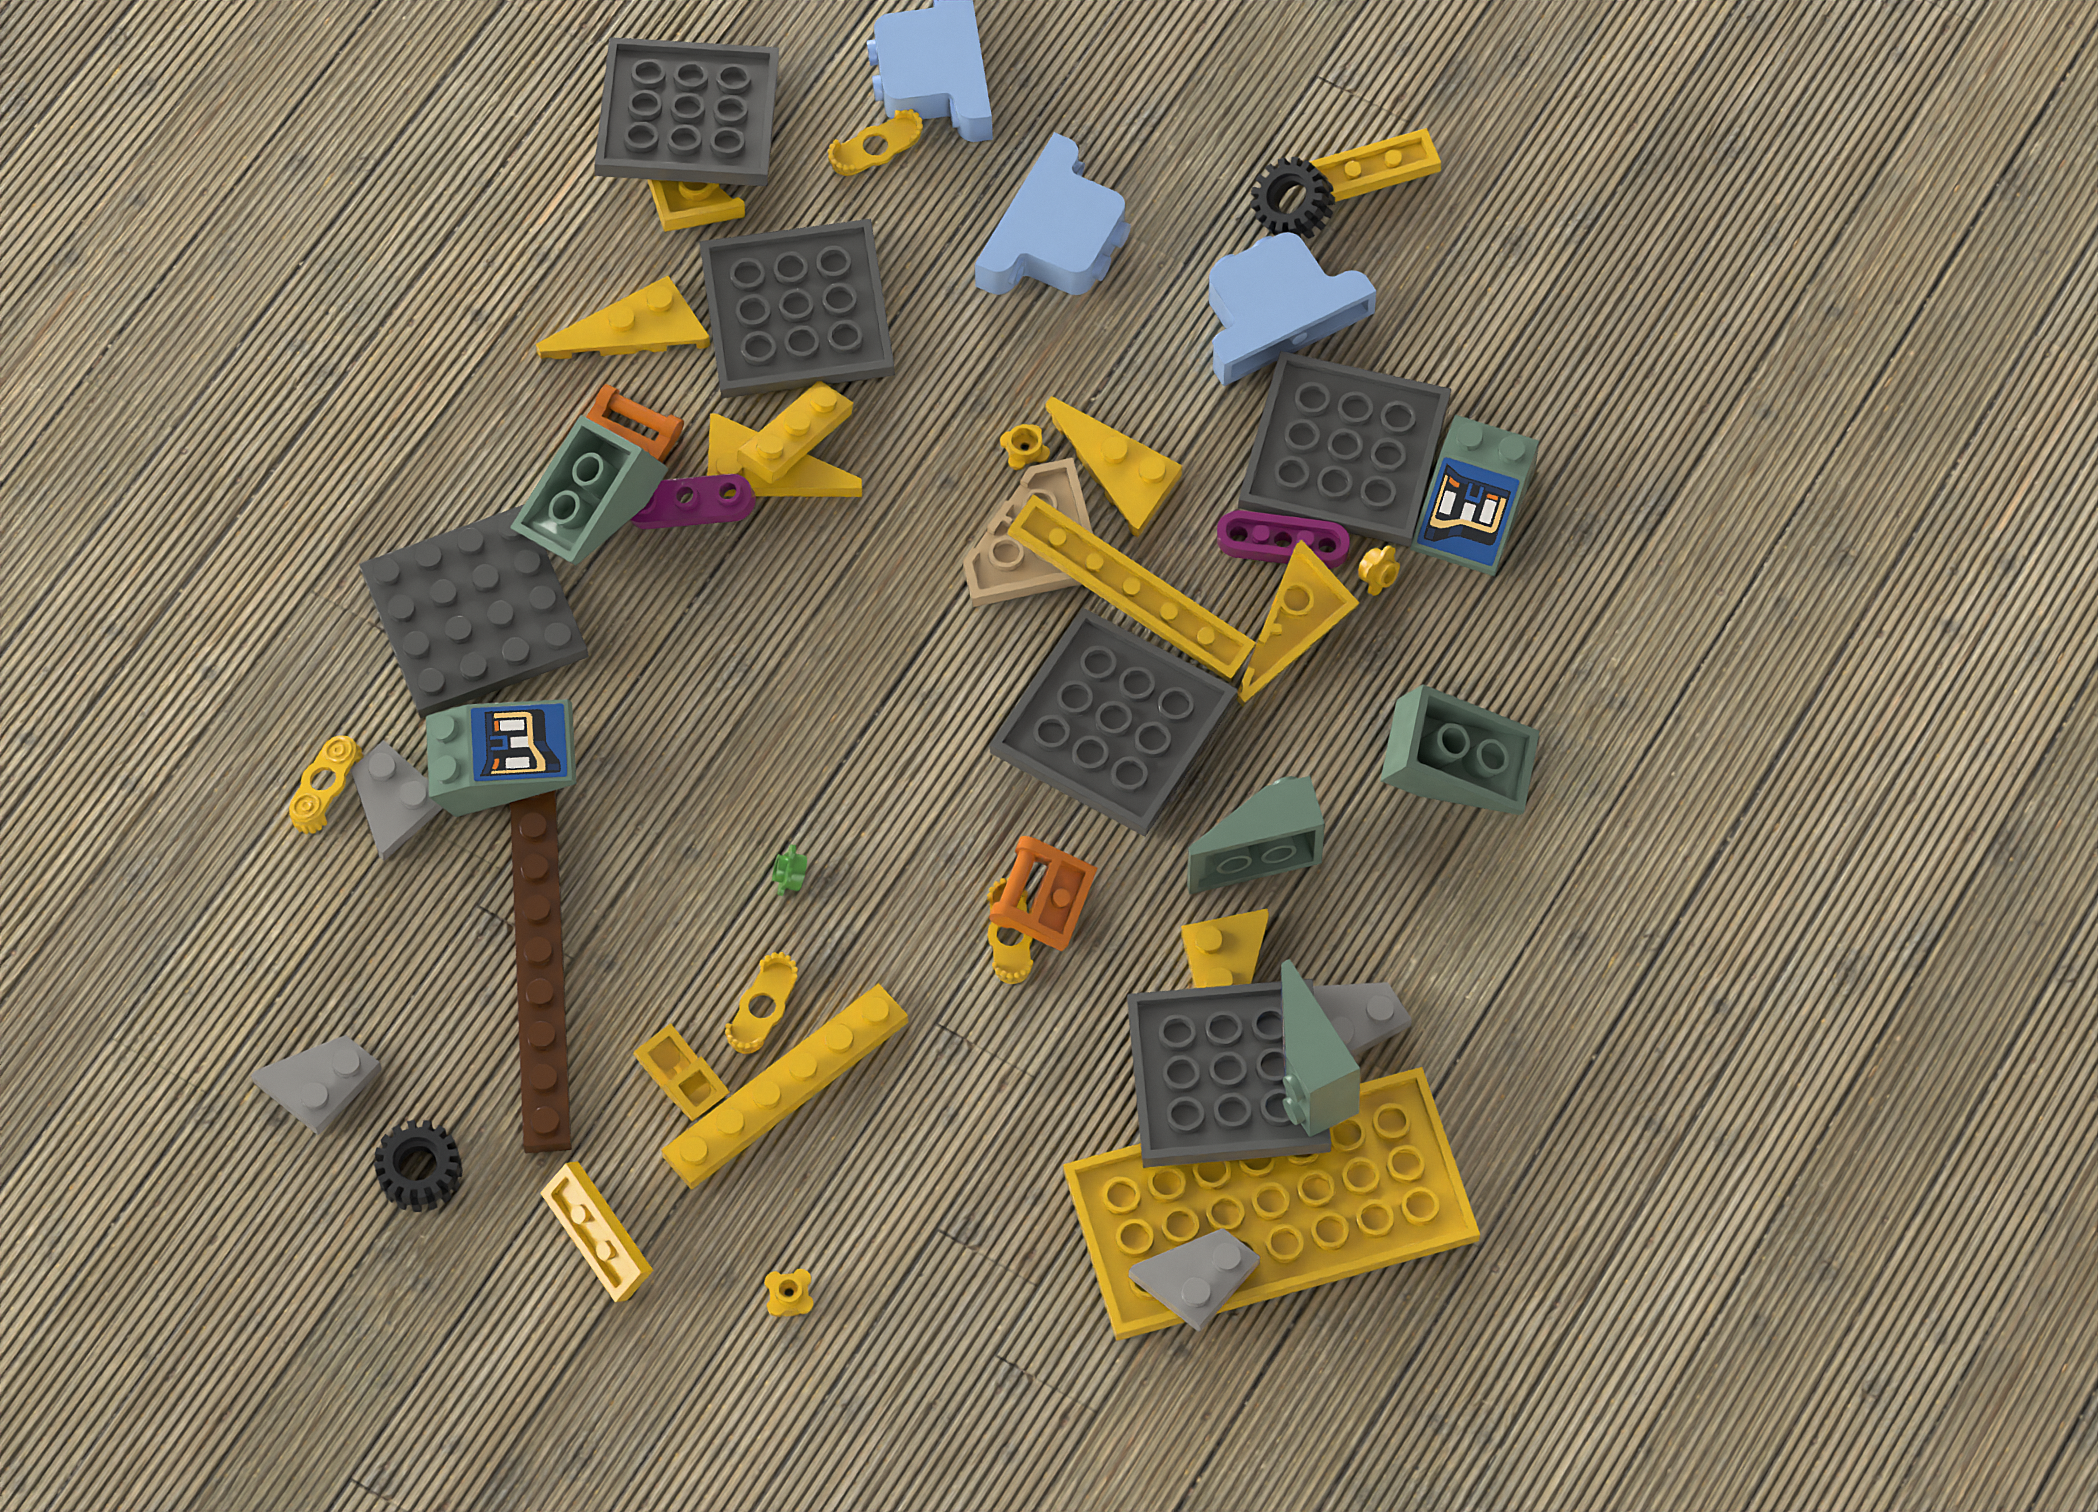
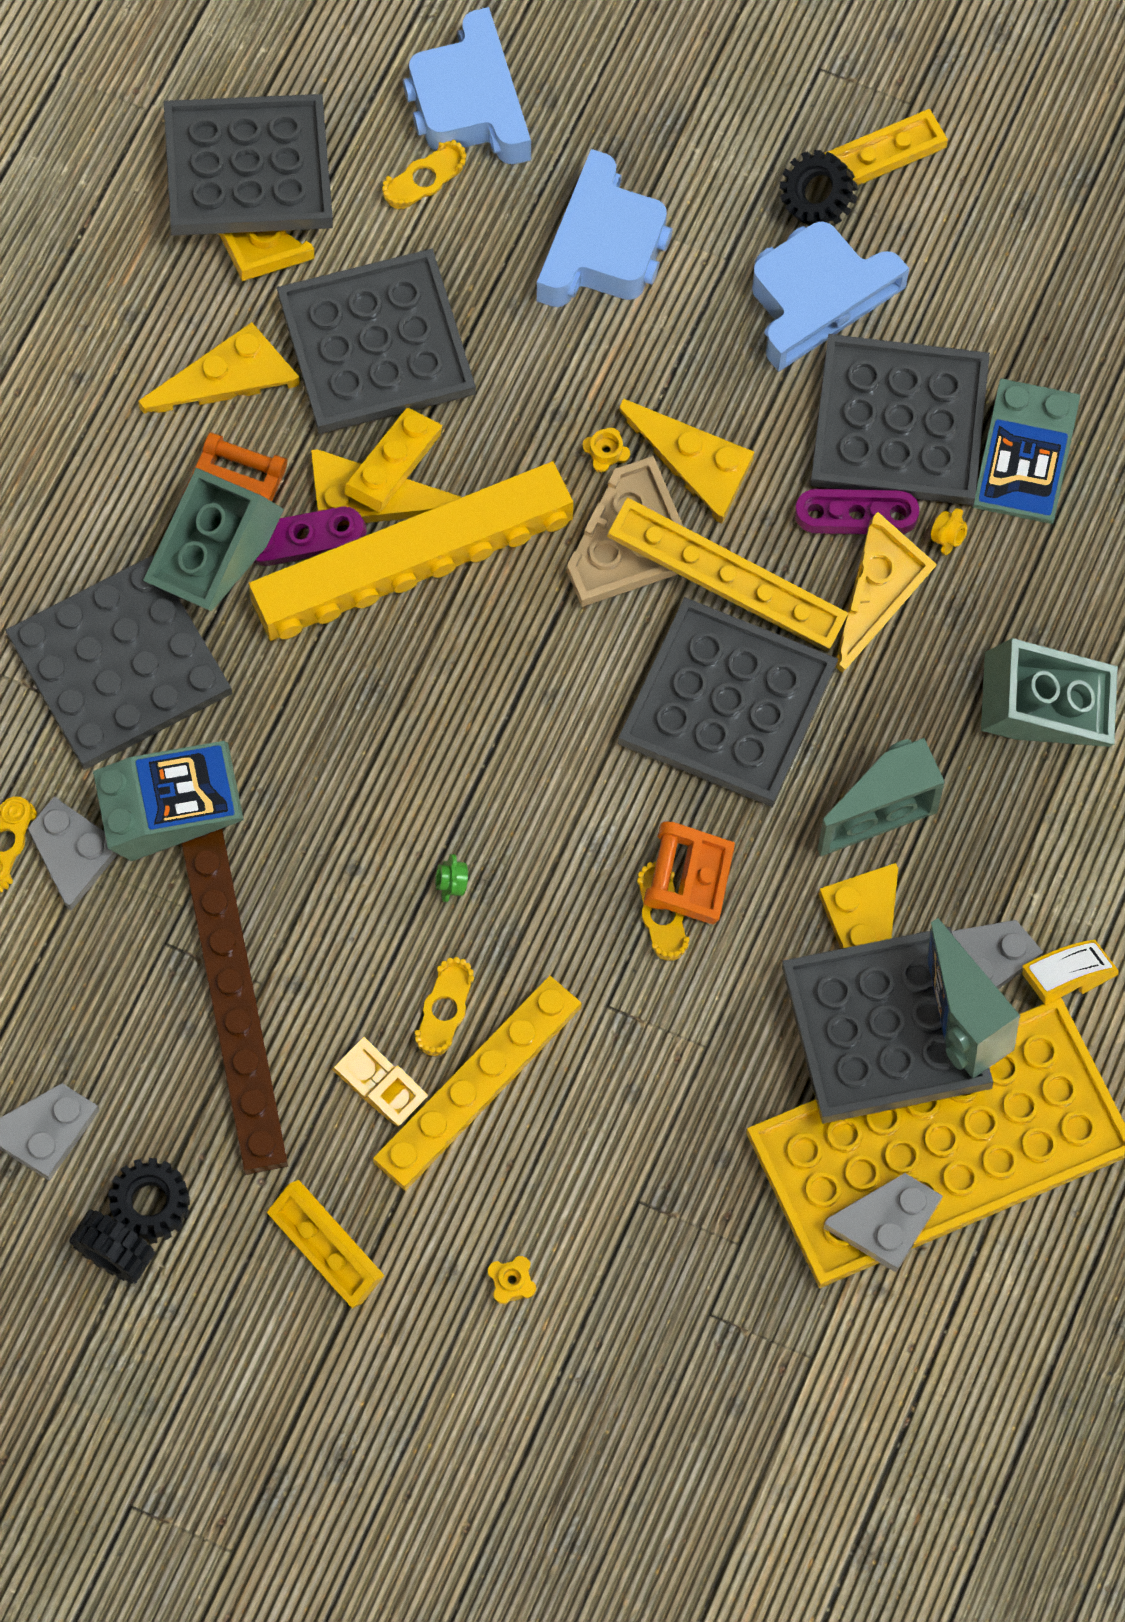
camera: 10 degrees left, 5 degrees up
(370, 1206) = (112, 1246): none -> black tyre
(800, 529) = (411, 552): none -> yellow brick
(1435, 1038) = (1069, 968): none -> slope

